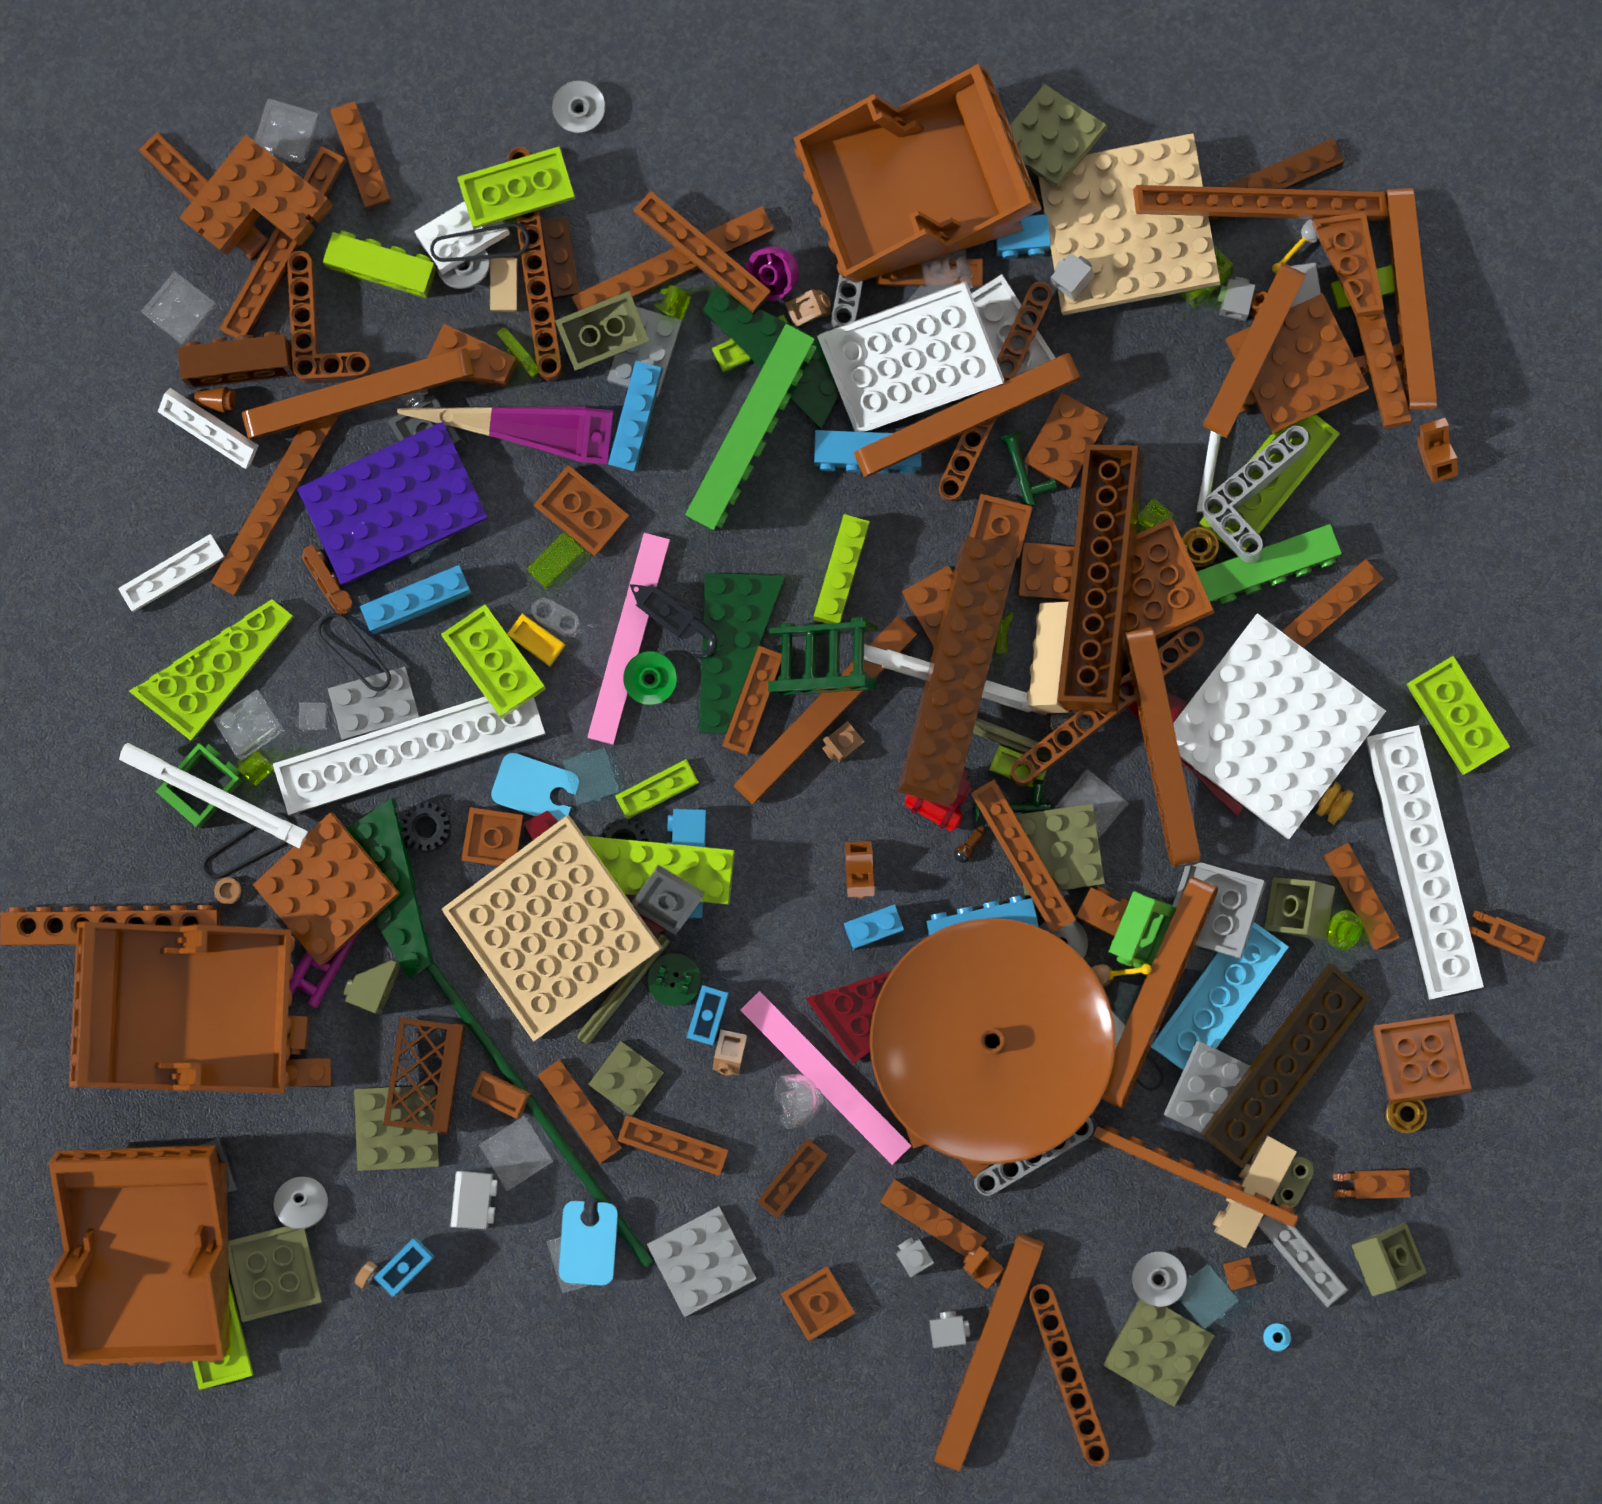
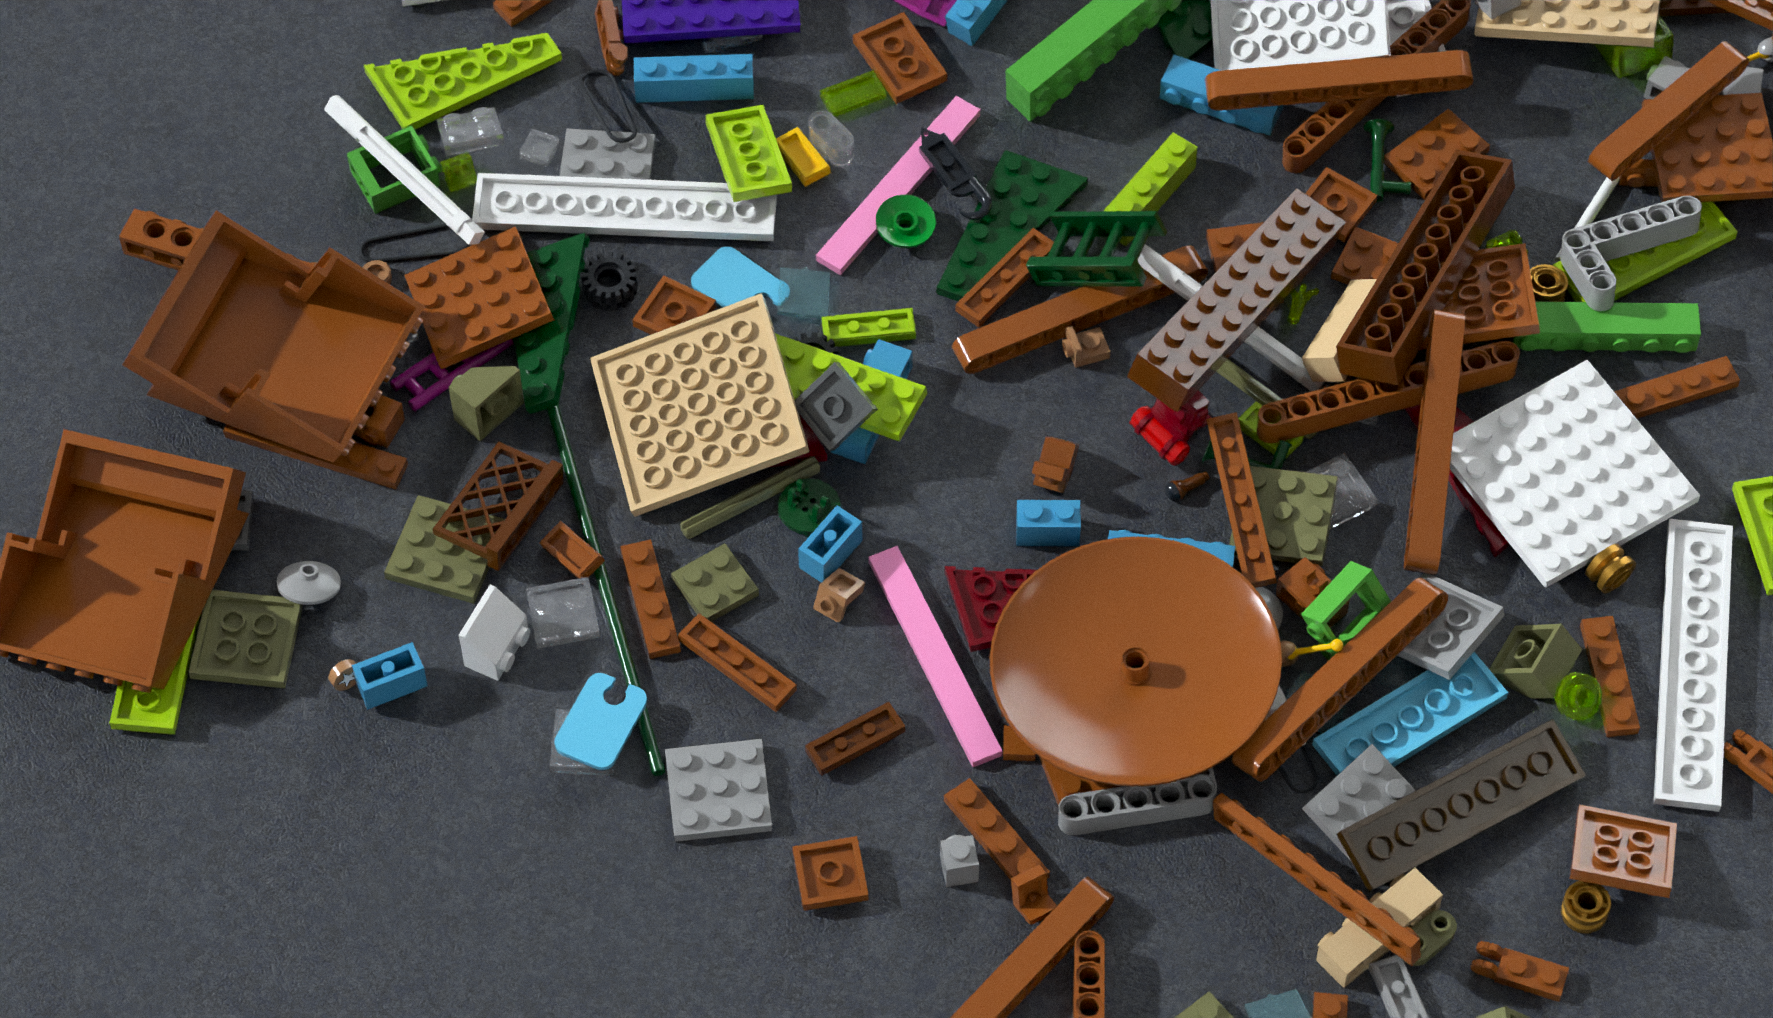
camera: 20 degrees right, 25 degrees down
(798, 1100) = (895, 658): clear cylinder -> none
(948, 1330) = (967, 950): light grey brick -> none
(1173, 1279) = (1235, 967): light grey dish -> none

